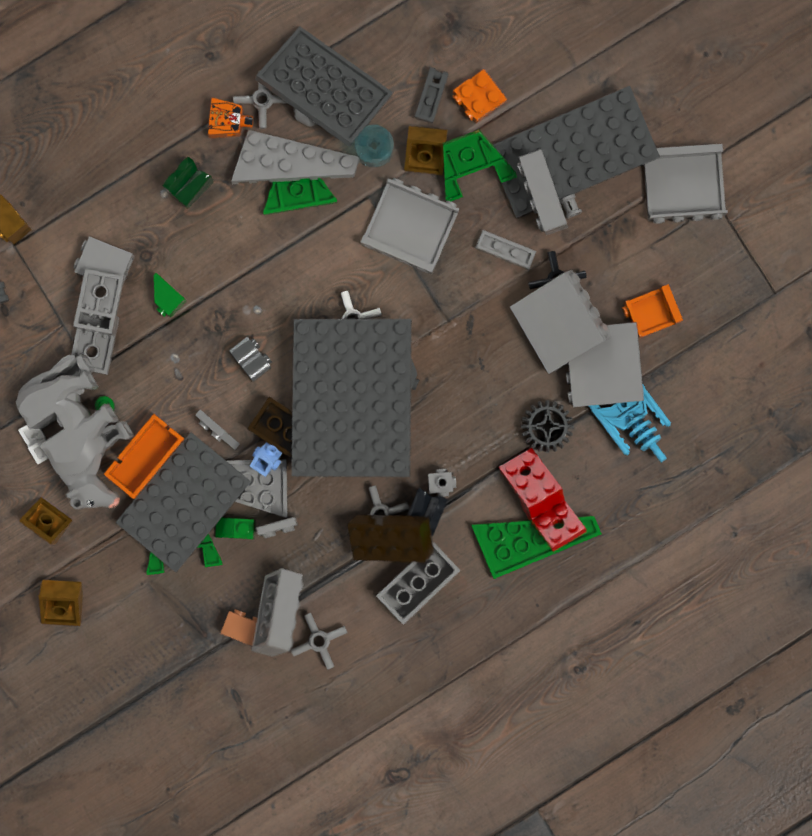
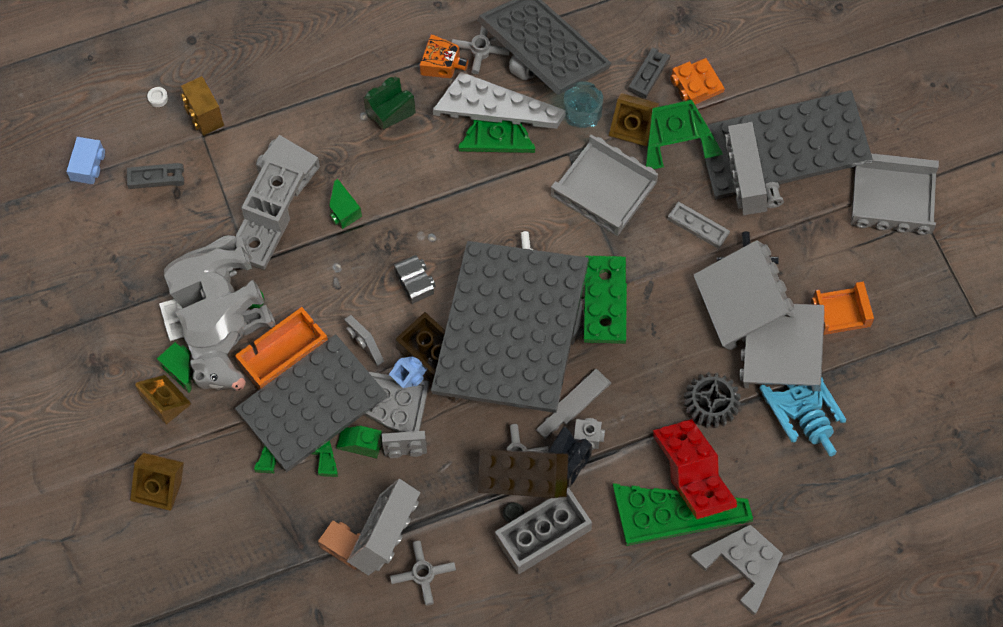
camera: 15 degrees right, 20 degrees down
(52, 488) = (177, 364): none -> green slope
(387, 569) = (512, 511): none -> pearl dark grey plate
(424, 449) = (575, 402): none -> light grey piece
(432, 347) = (605, 300): none -> green bracket
(605, 567) = (749, 555): none -> light grey wing

